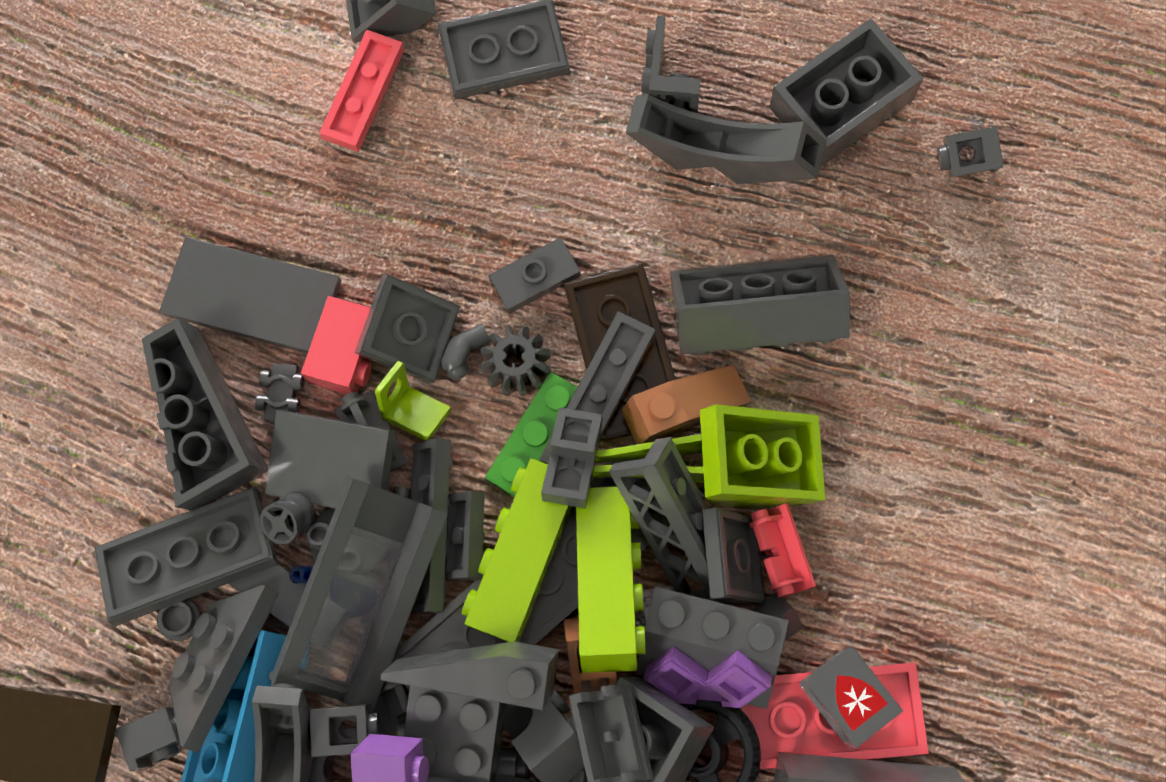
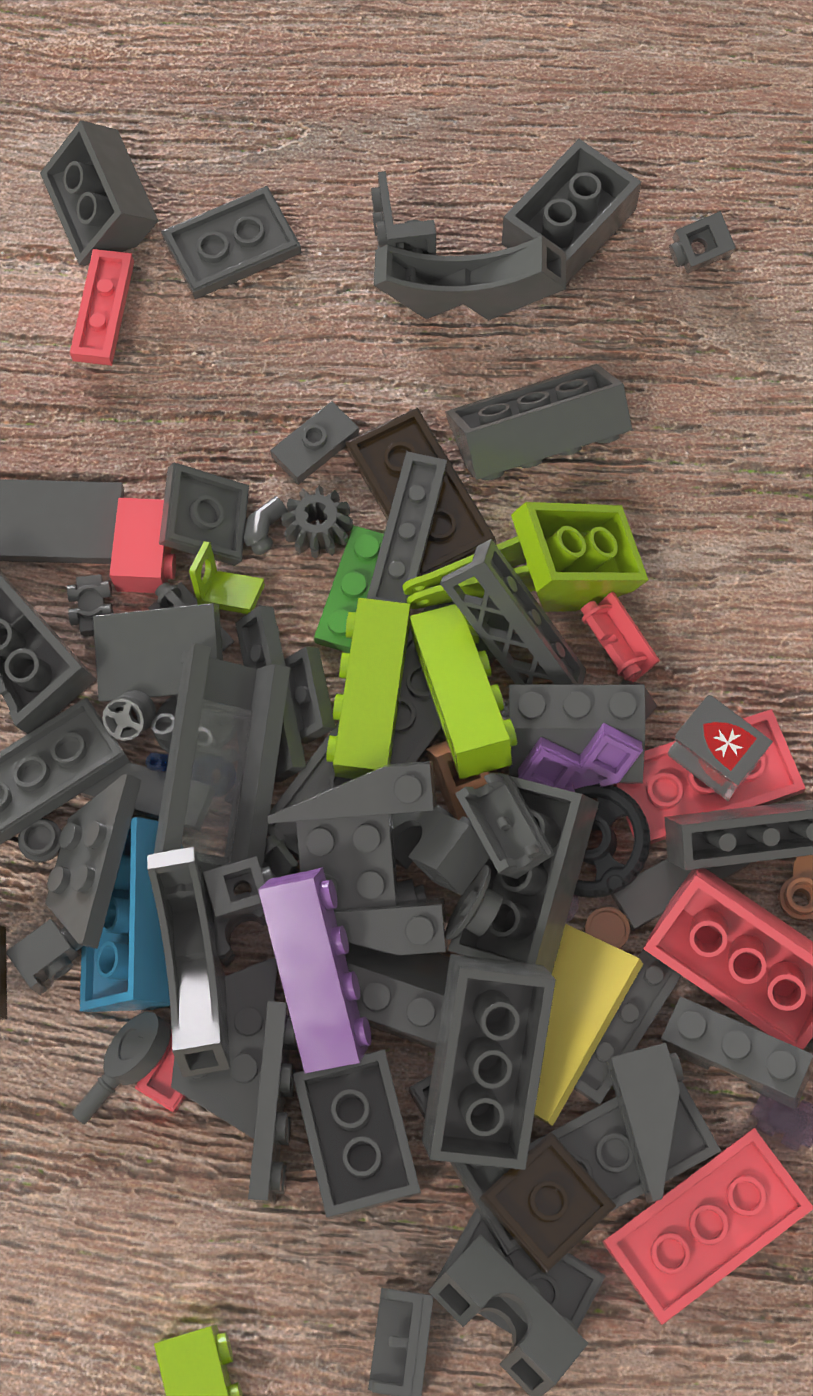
camera: 20 degrees left, 5 degrees down
(572, 457) = (399, 585): dark grey slope -> none
(678, 403) = (481, 520): nougat slope -> none
(732, 557) = (573, 646): dark grey tile -> none

